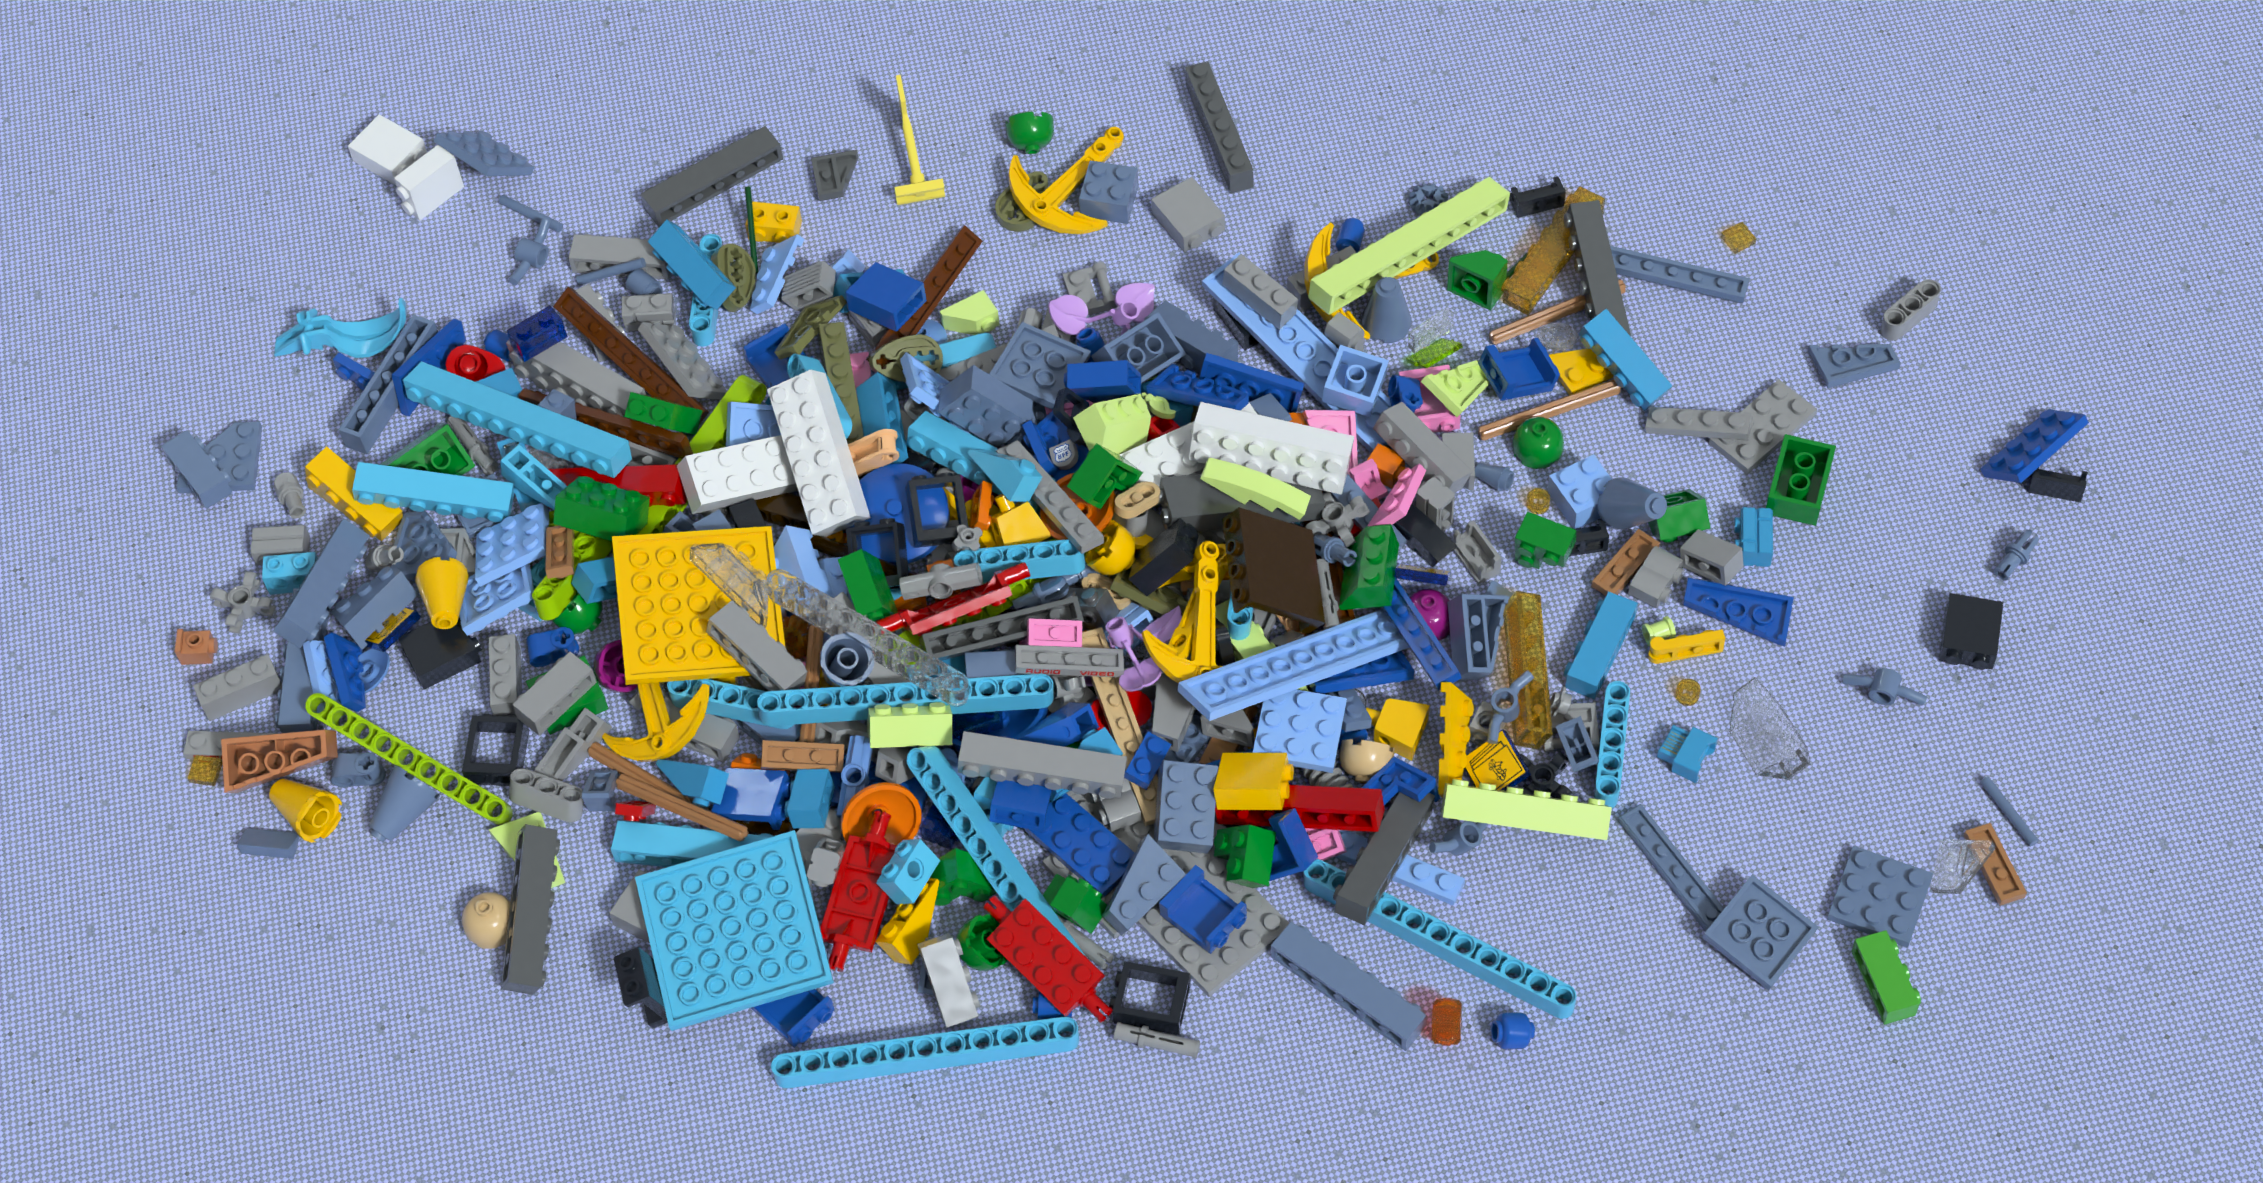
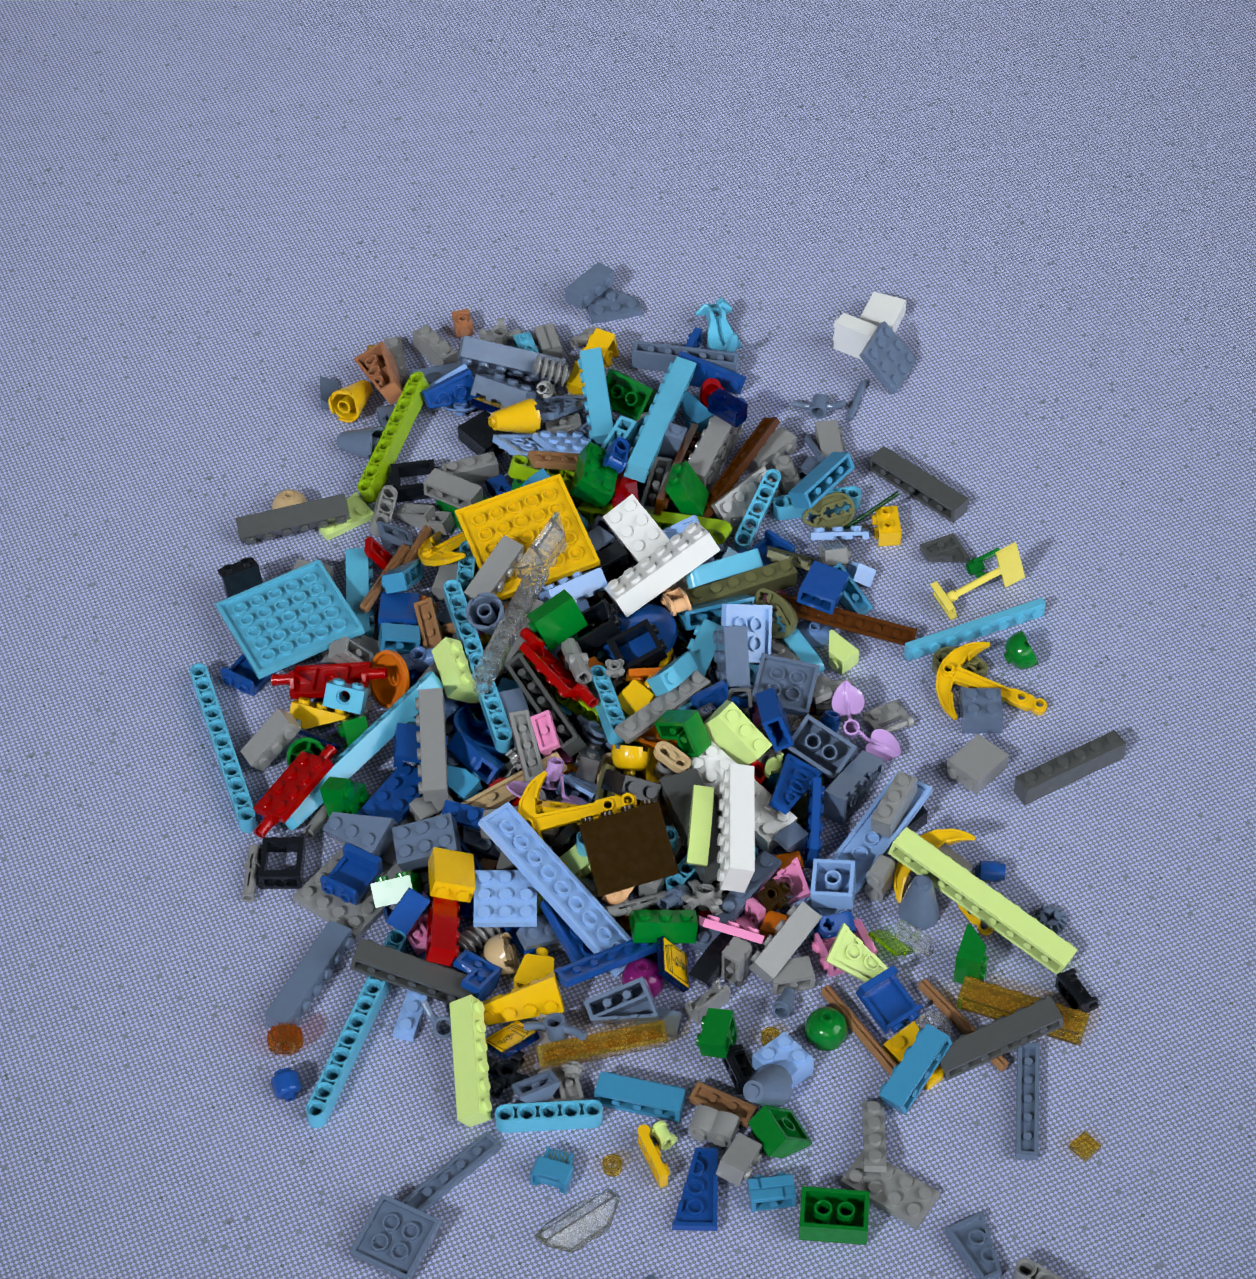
camera: 75 degrees right, 10 degrees down
(363, 537) = (551, 370): none -> light grey piece
(589, 471) = (617, 454): none -> blue piece
(704, 340) = (760, 503): none -> medium azure beam
(871, 149) = (976, 565): none -> green plant
(958, 920) = (319, 739): none -> clear blue piece
(979, 178) = (974, 629): none -> medium azure plate
(1363, 441) = (776, 894): none -> dark brown brick

